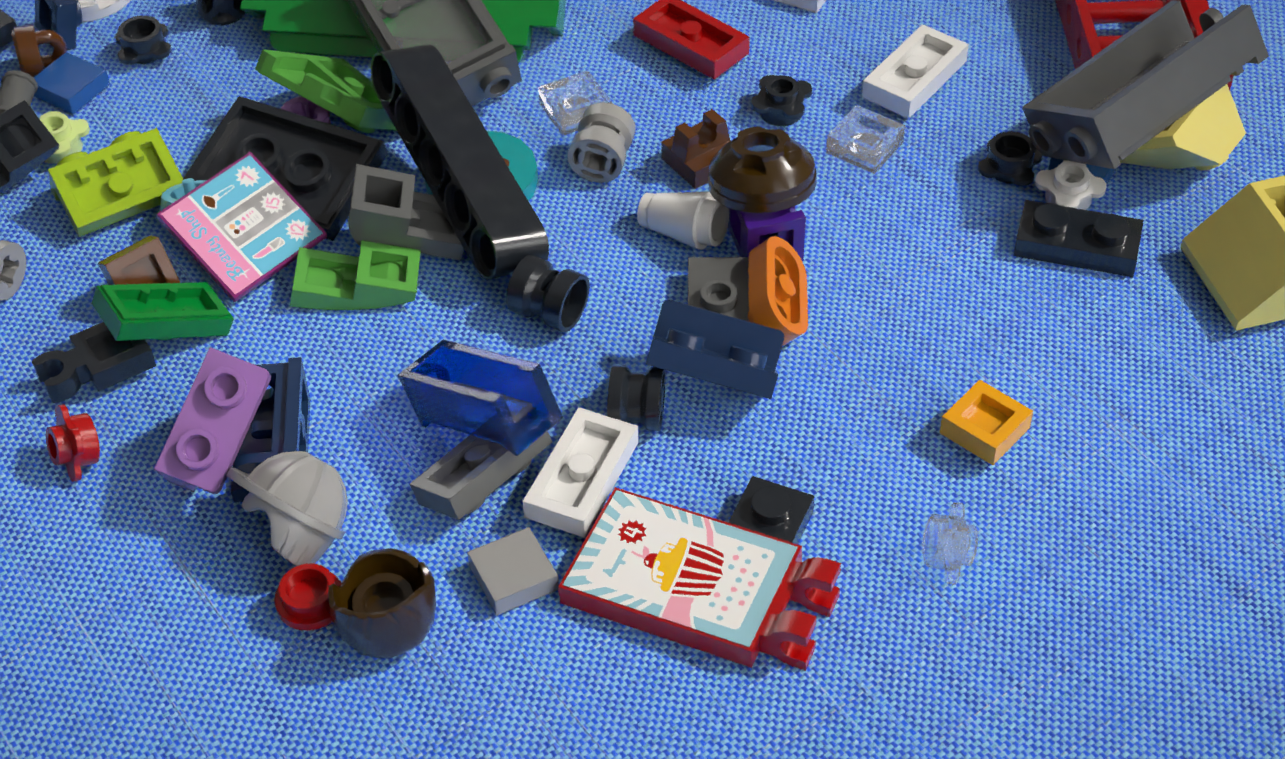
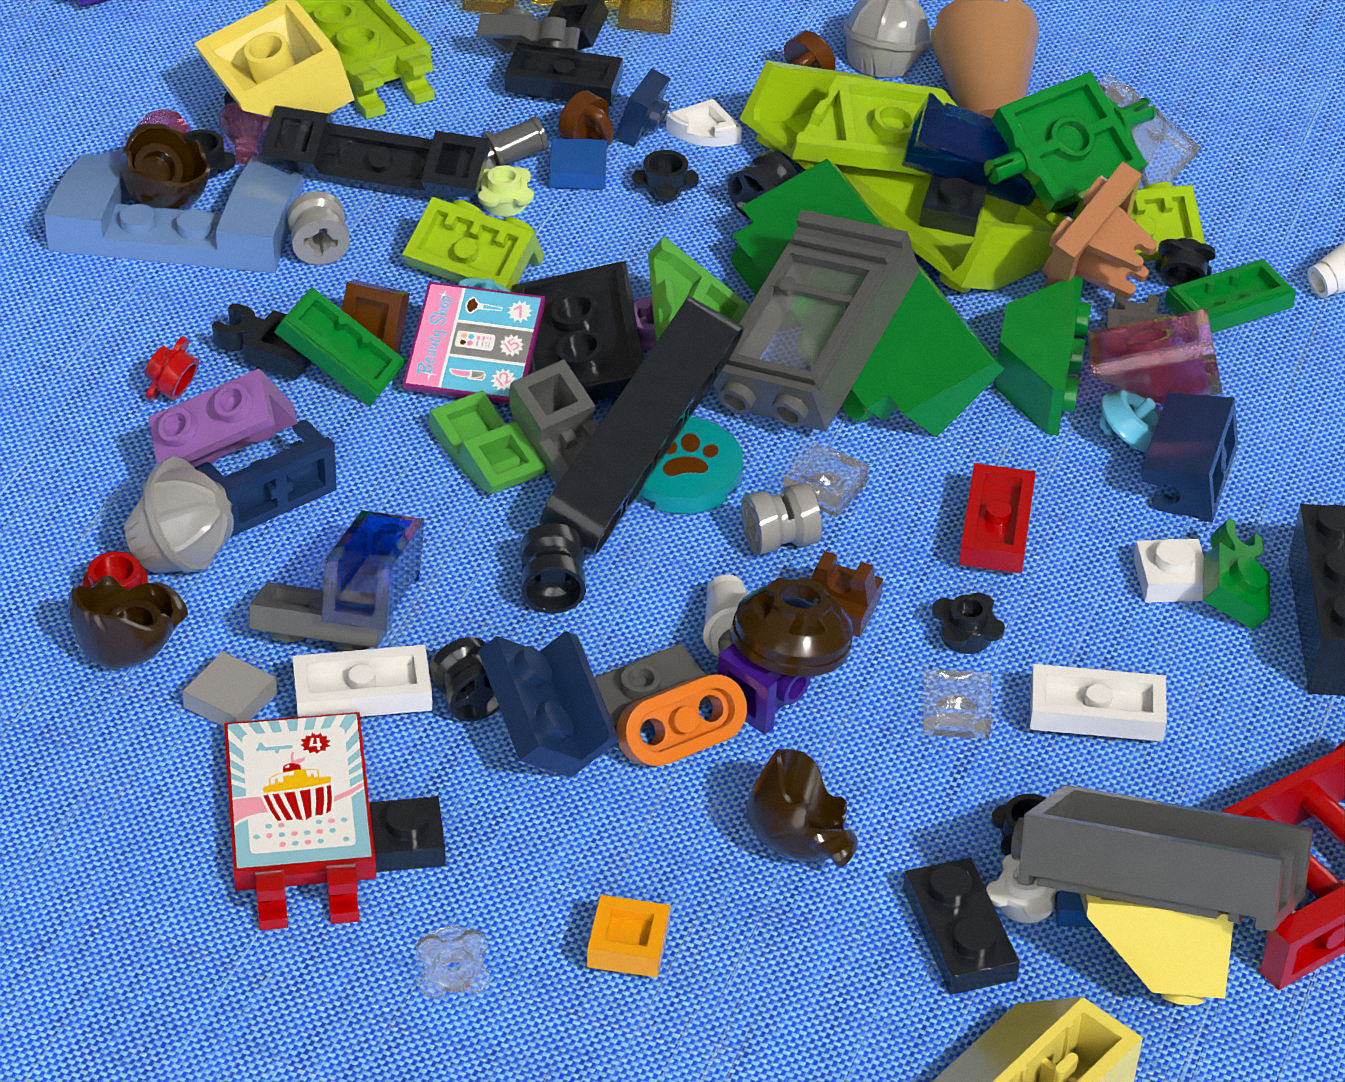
camera: 55 degrees right, 5 degrees down
(926, 272) = (796, 812): none -> dark brown hair

